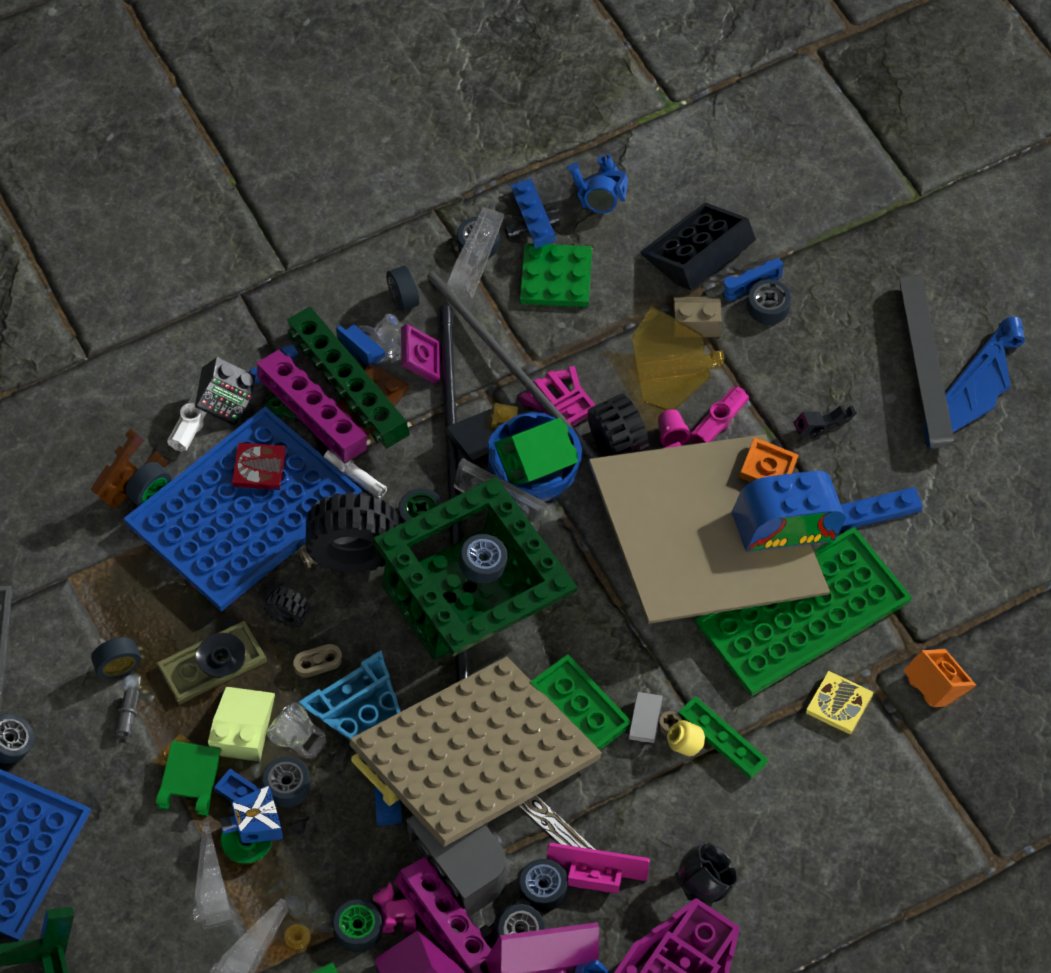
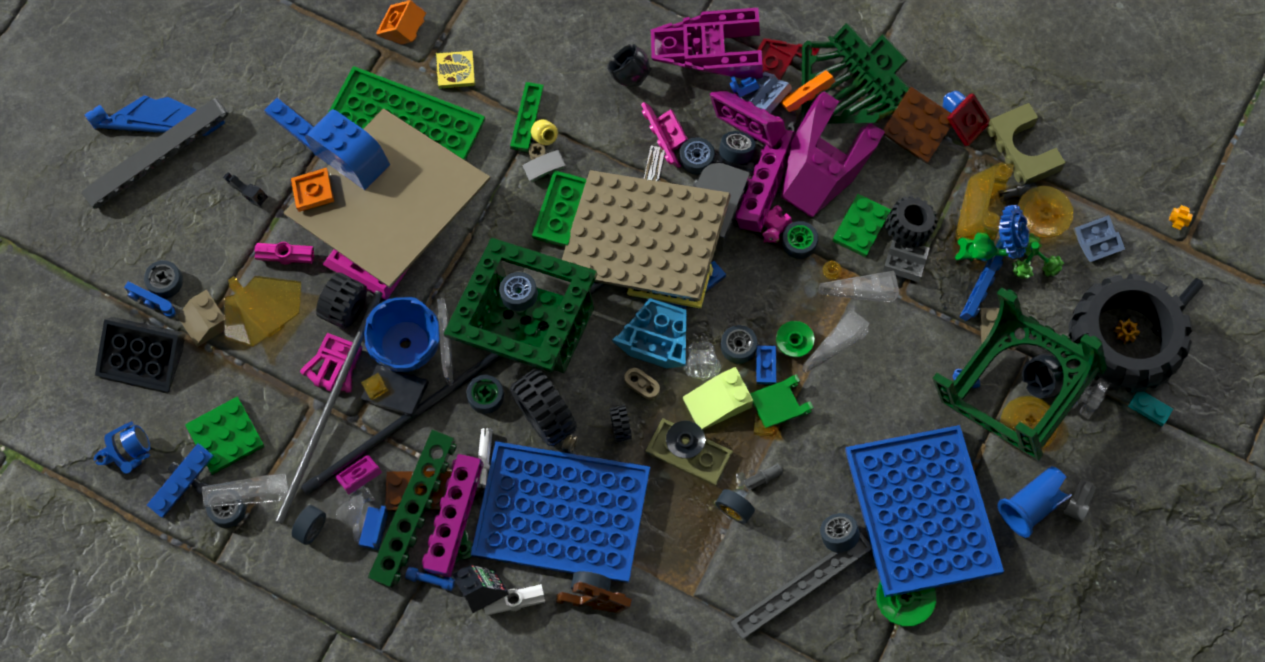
camera: 125 degrees left, 10 degrees up
(254, 817) = (781, 336): torso -> none
(259, 466) = (525, 518): dark red tile -> none
(536, 452) = (405, 324): green slope -> none
(672, 428) = (313, 276): dark pink piece -> none

